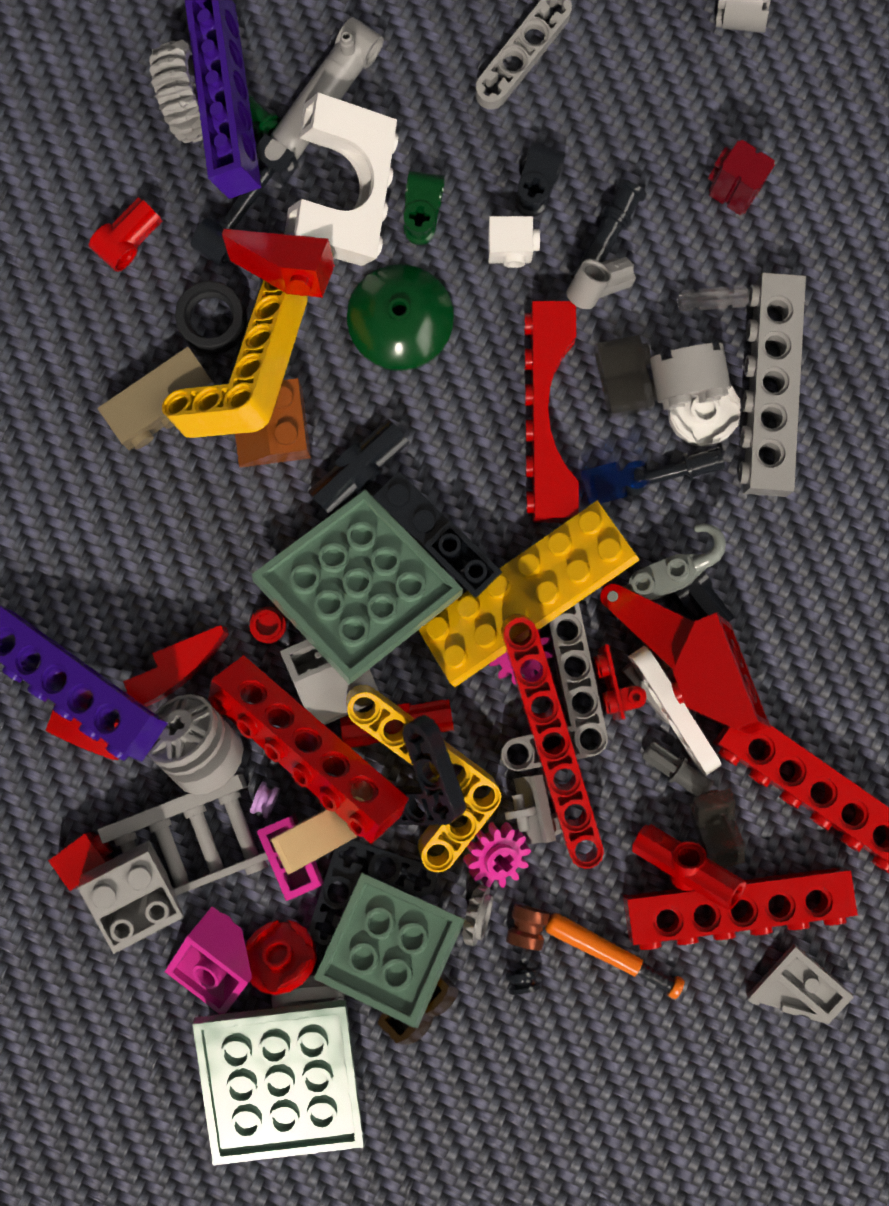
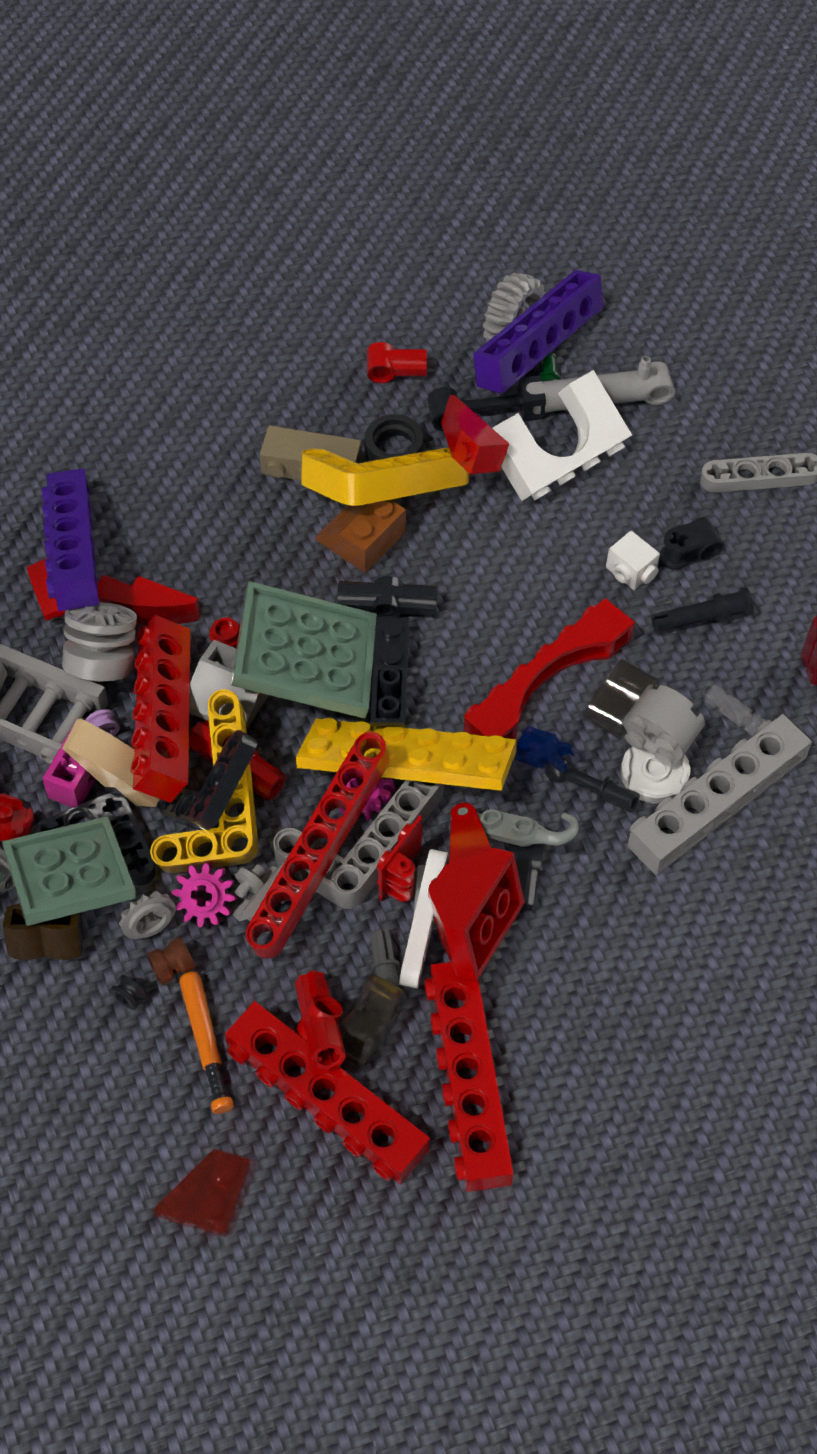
camera: 45 degrees right, 25 degrees down
(402, 340) = (508, 558): dark green dish -> none
(422, 203) = (596, 497): dark green piece -> none
(598, 280) = (659, 619): light grey piece -> none
(733, 1056) = (207, 1194): none -> clear red wing
(801, 988) = (307, 1194): light grey wing -> none

